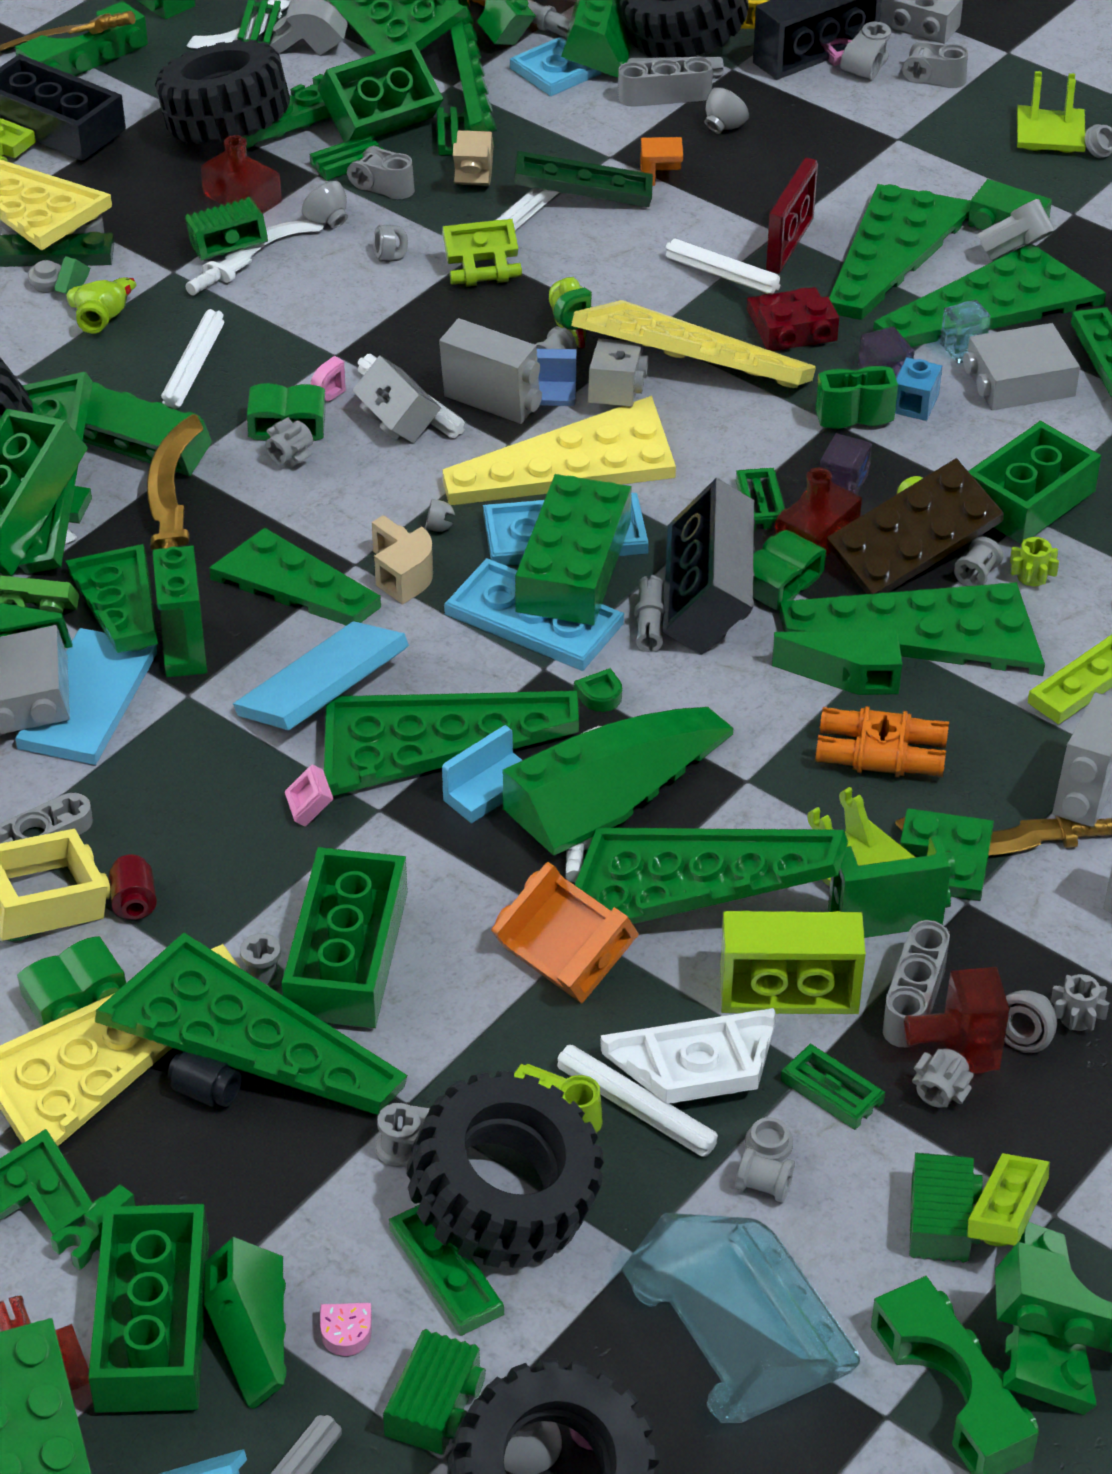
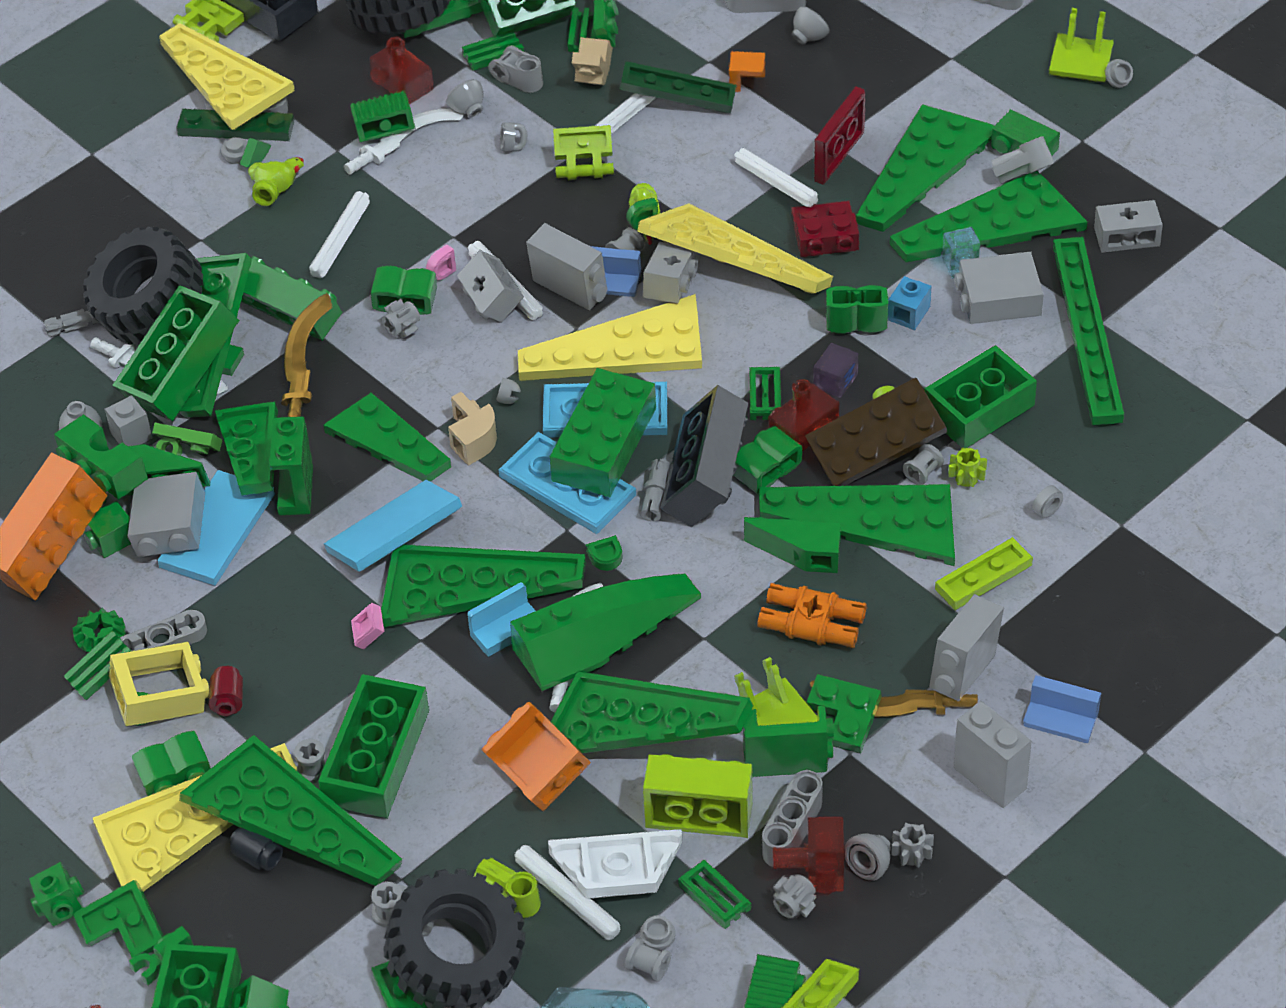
camera: 10 degrees right, 5 degrees up
(885, 349) = (889, 268): clear purple brick -> none

